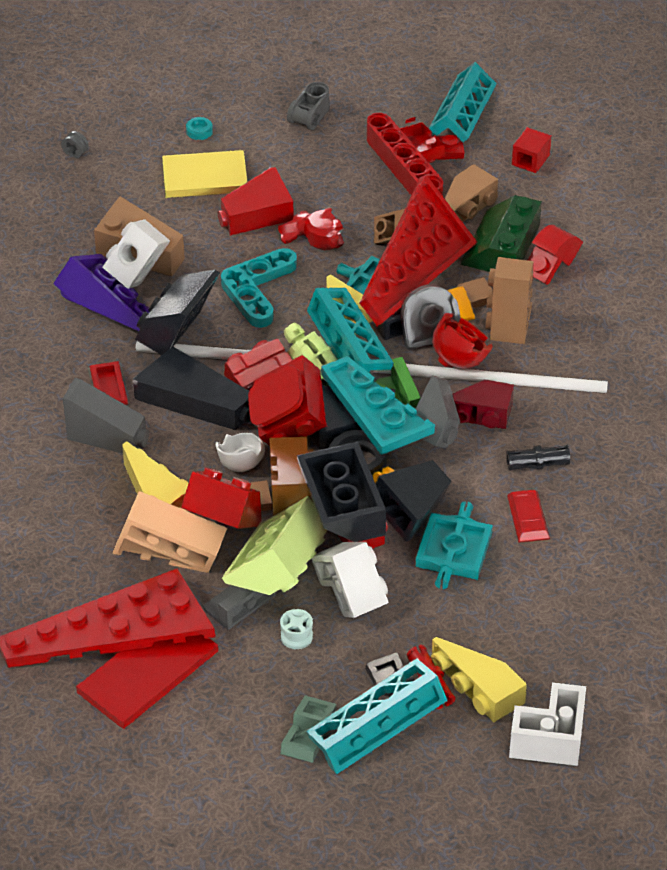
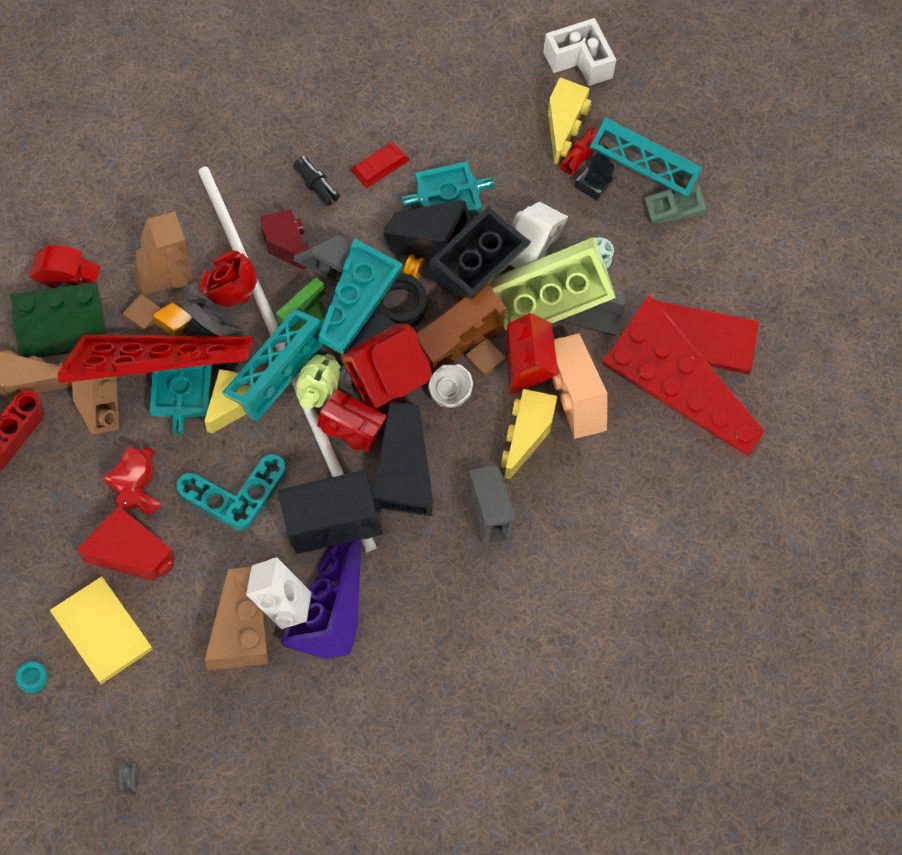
camera: 125 degrees left, 20 degrees up
(108, 379) = (434, 541): red tile -> none

